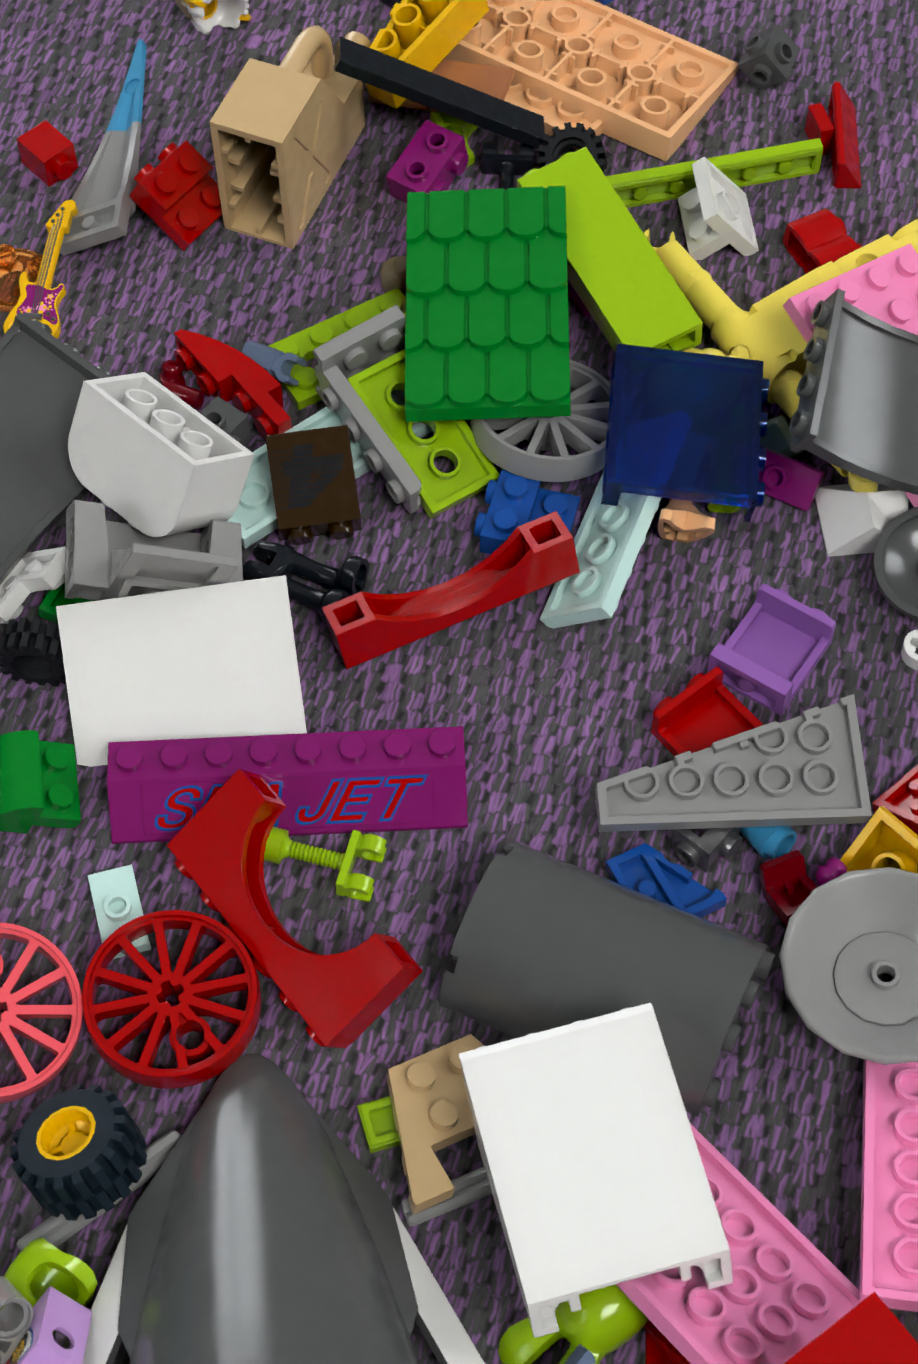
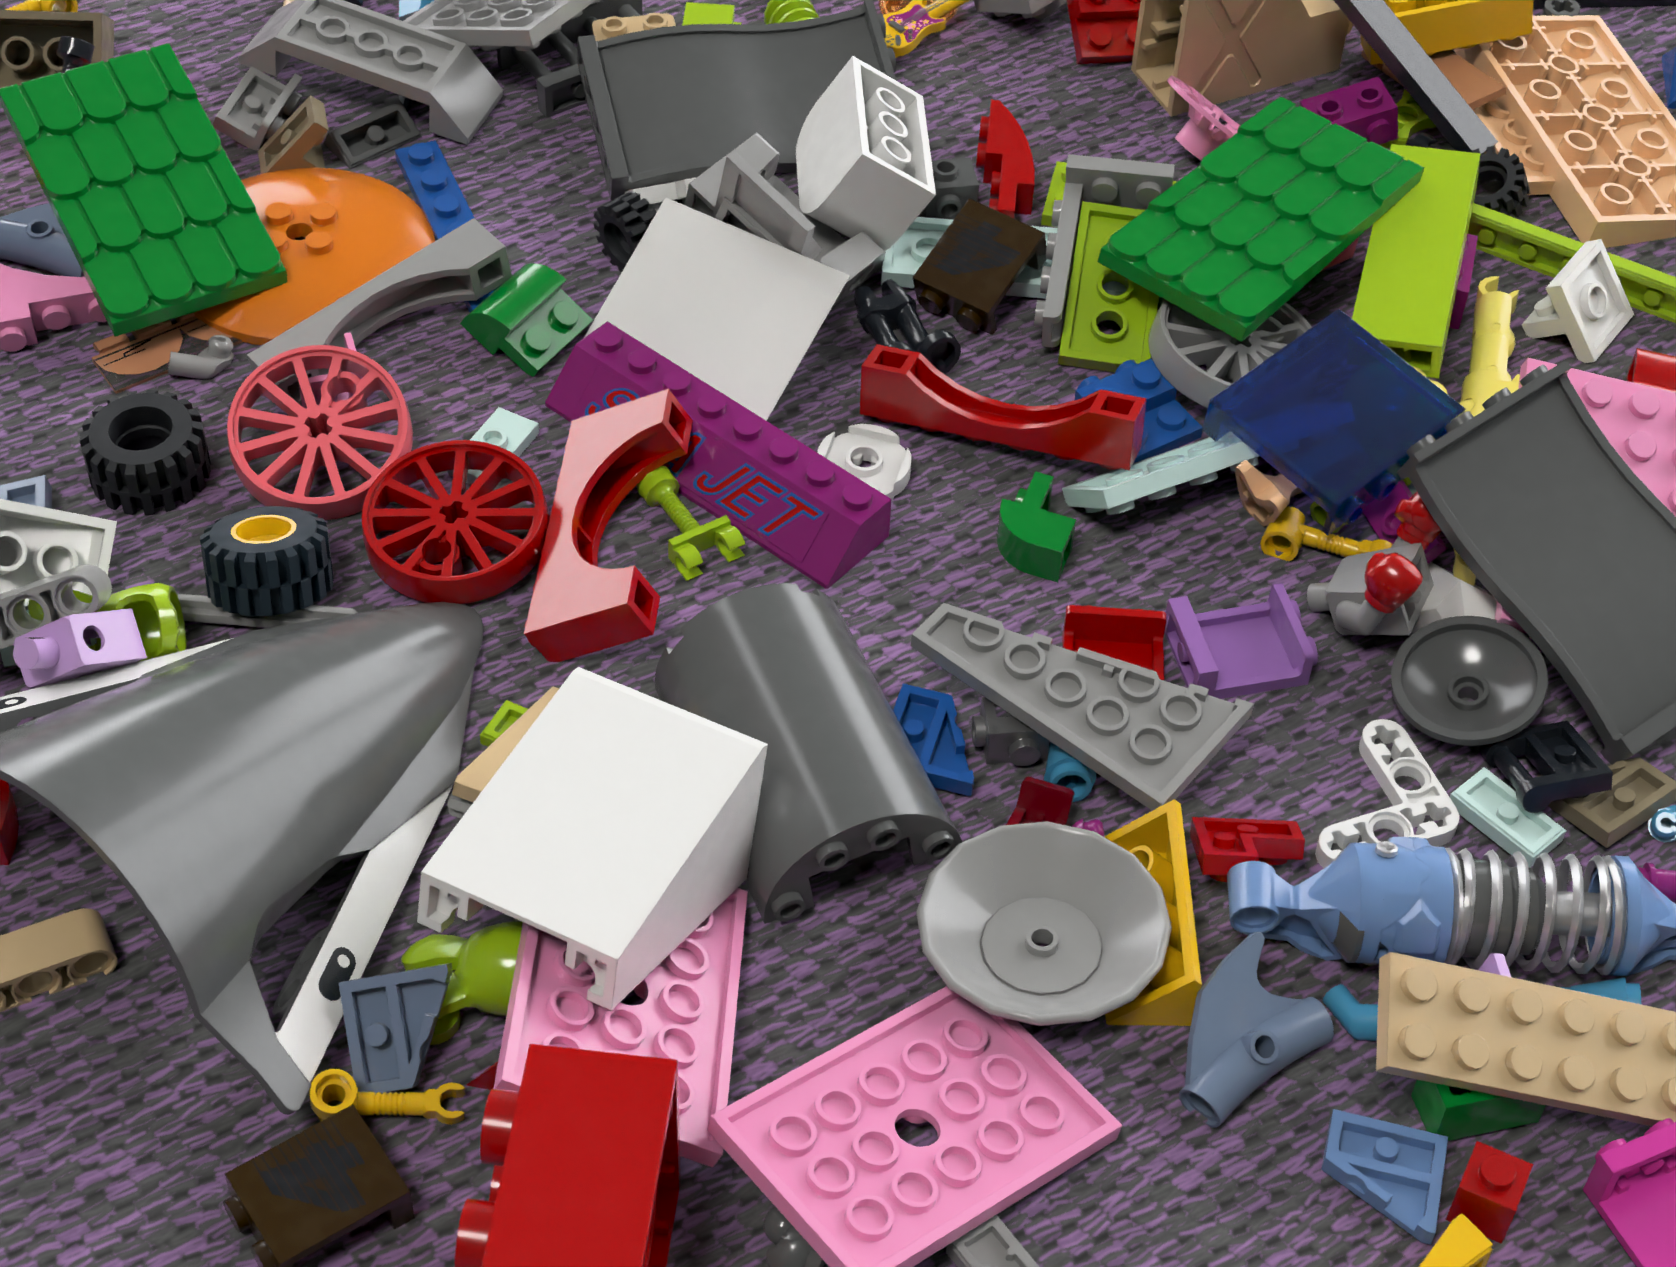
camera: 40 degrees right, 10 degrees down
(174, 380) = (960, 140): dark red arm -> none
(274, 361) = (1048, 168): sand blue bar -> none
(346, 252) = (1199, 132): none -> bright pink wheel
(393, 686) = (871, 443): none -> white plate
(563, 676) = (1031, 535): none -> green brick
(720, 542) = (1290, 533): none -> yellow brick
(820, 534) = (1385, 587): none -> torso

